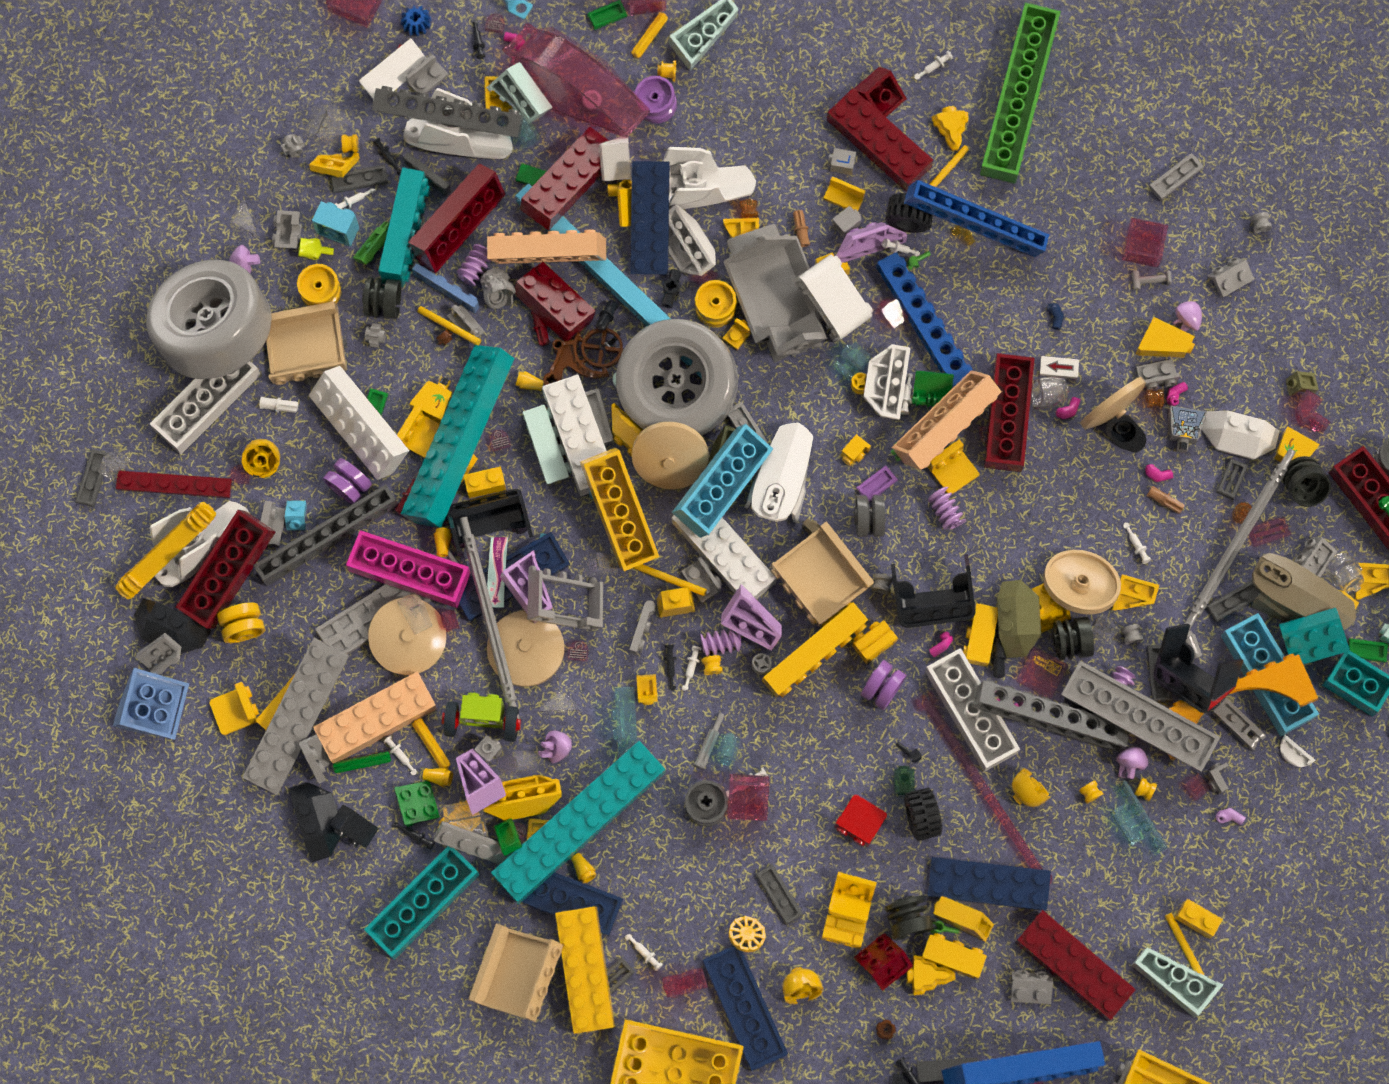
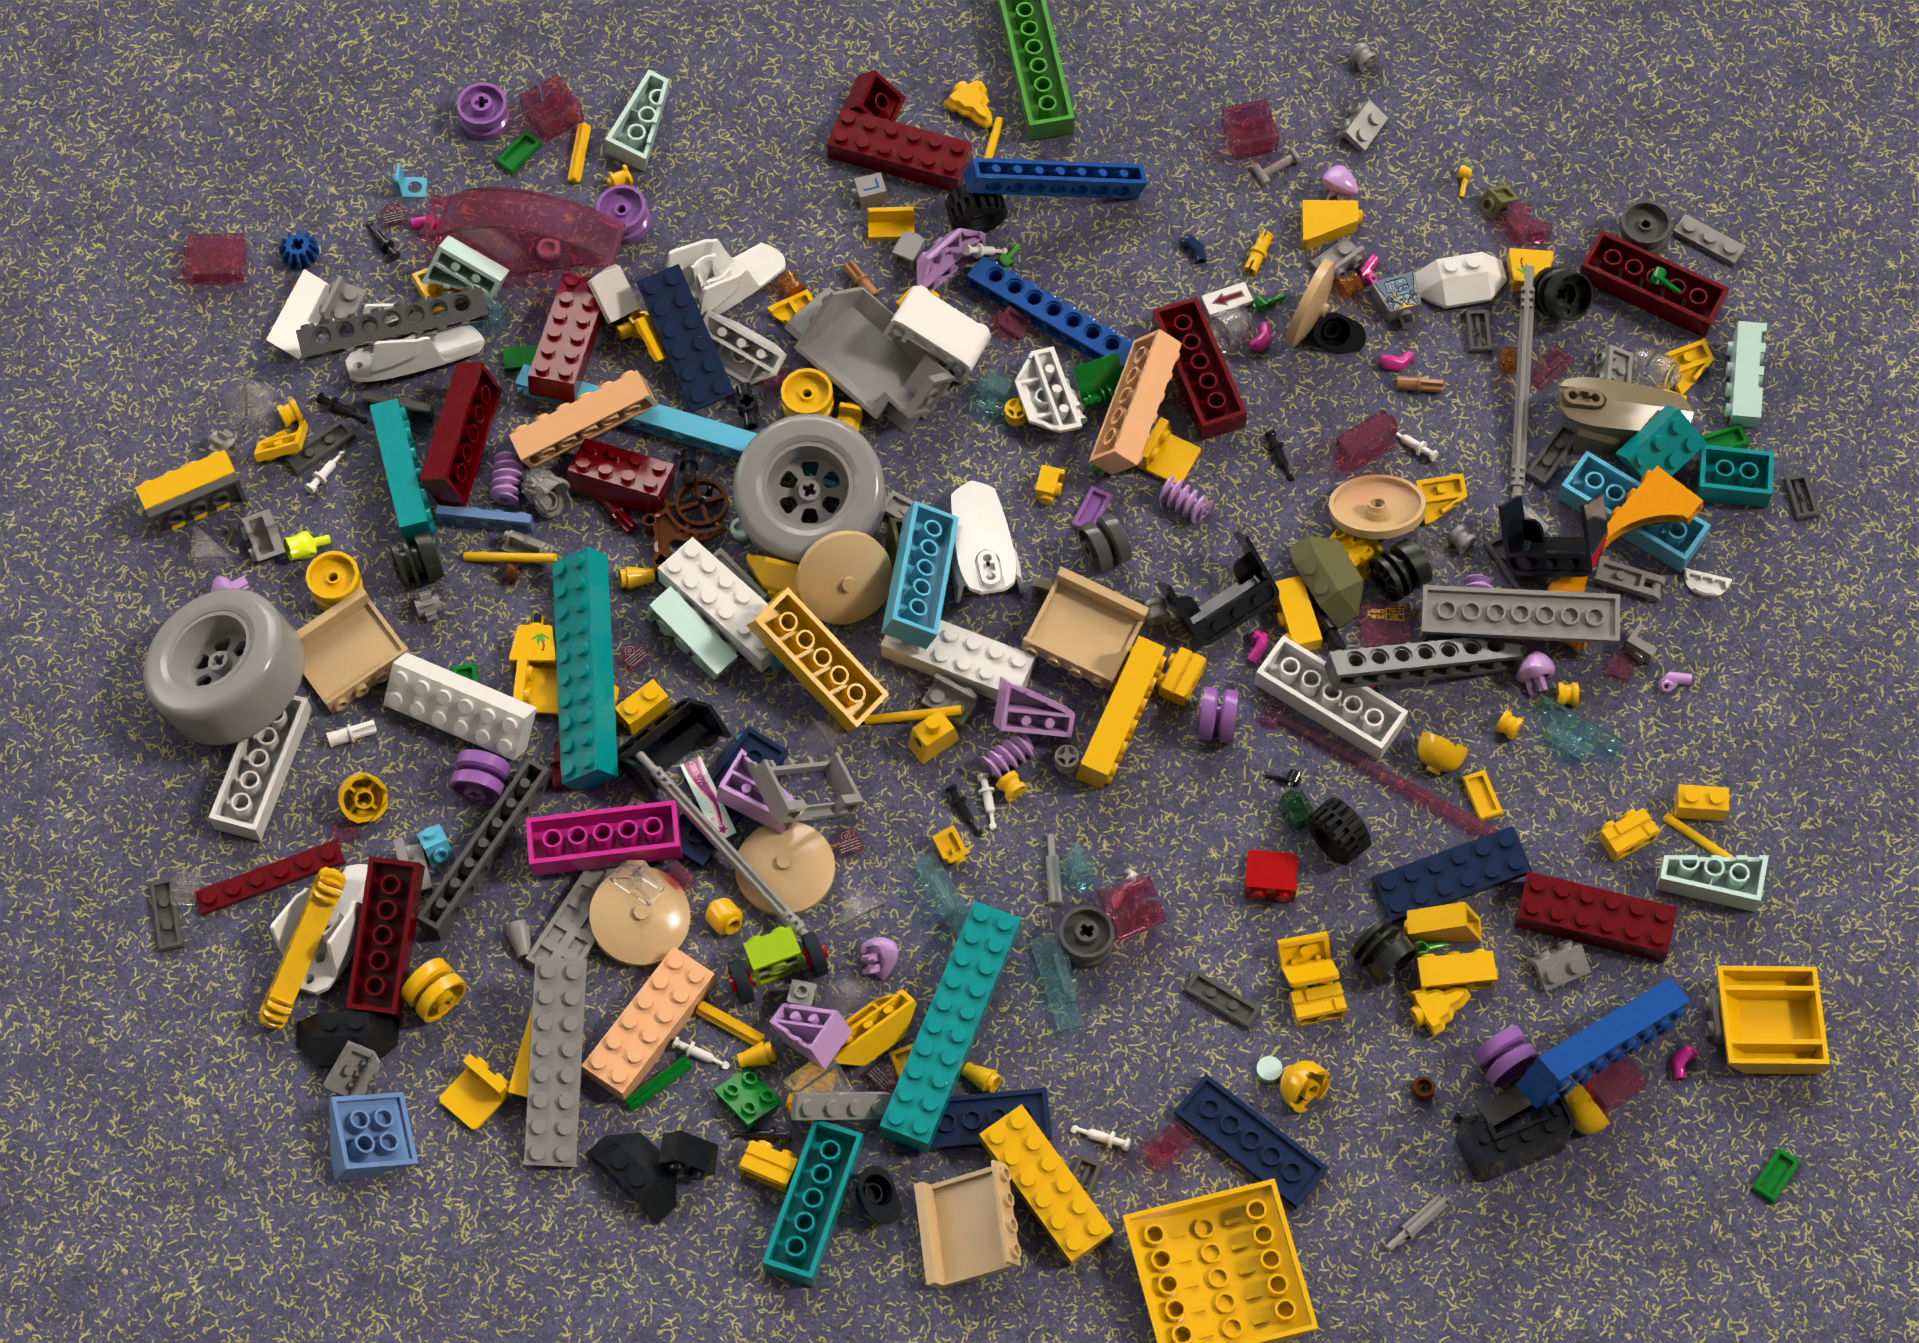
camera: 25 degrees left, 10 degrees down
(251, 174) = (191, 493): none -> piece
(315, 756) = (601, 1099): light grey bracket -> none
(319, 611) = (519, 936): none -> light grey cone
(335, 223) = (319, 503): medium azure brick -> none
(372, 244) = (373, 508): bright green hinge -> none
(405, 859) = (768, 1165): none -> yellow brick
(442, 541) = (626, 789): yellow cone -> none
(465, 664) = (724, 916): none -> yellow head
(468, 919) = (878, 1195): none -> black piece
(507, 836) = (877, 1079): green tile -> none
(643, 627) = (910, 781): light grey plate -> none
(669, 825) = (1057, 982): none -> clear light blue bracket
(747, 934) = (1209, 1059): yellow wheel -> none
(785, 961) = (1269, 1069): none -> light aqua tile
(884, 961) = (1381, 1011): dark red bracket -> none
(938, 62) = (921, 43): white piece -> none
(954, 1034) = (1505, 1056): none -> medium lavender wheel
(967, 235) = (1044, 205): clear yellow arm -> none
(1034, 504) = (1277, 449): none -> black piece
(1043, 834) = (1482, 795): none -> yellow tile
(1082, 381) = (1261, 301): none -> green hand
(1100, 528) = (1365, 442): none -> clear pink brick
(1101, 341) = (1258, 252): none -> yellow pin
(1132, 916) = (1628, 834): none -> yellow brick
(1176, 177) = (1246, 50): light grey plate -> none
(1288, 349) = (1465, 174): none -> yellow hand

